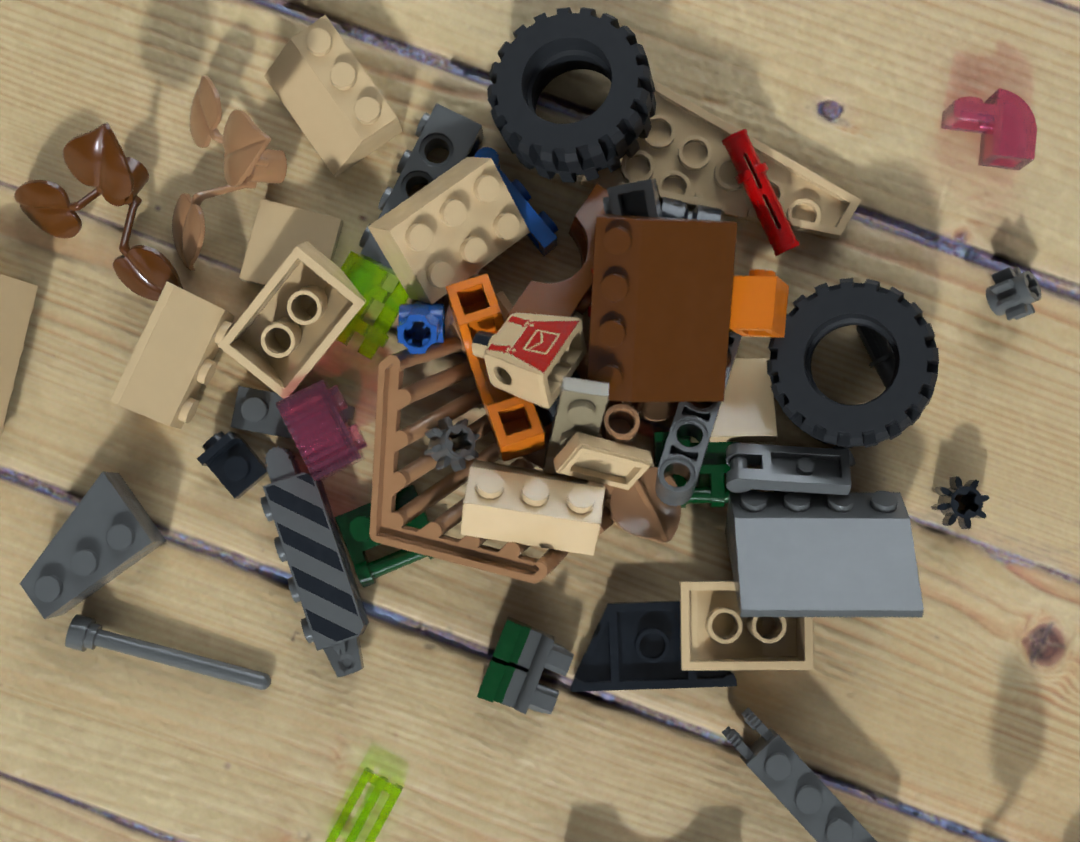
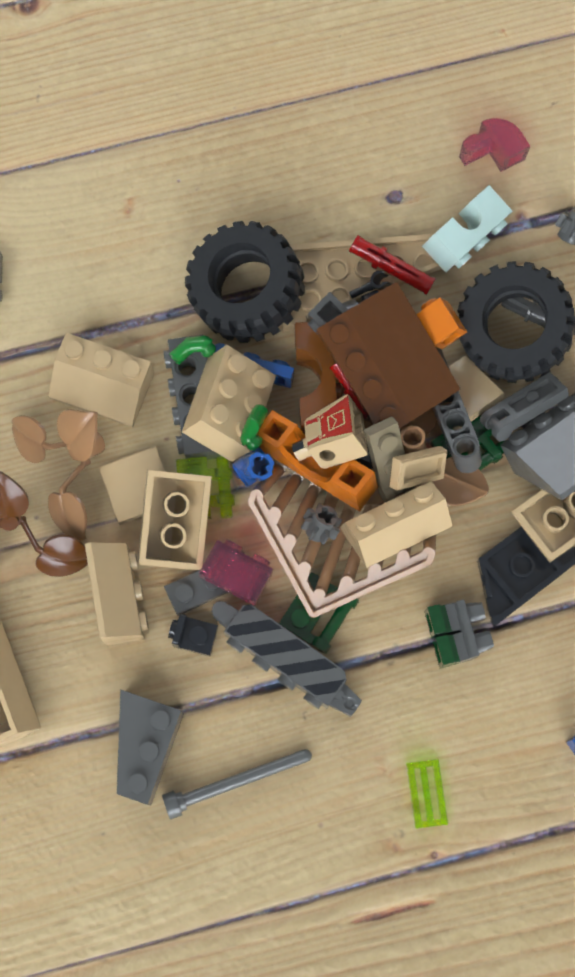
camera: 35 degrees left, 10 degrees down
(448, 277) = (253, 424): none -> green arm
(459, 131) = (193, 344): none -> green arm
(721, 200) = (373, 284): none -> black hand
(913, 208) = (453, 242): none -> light aqua arch

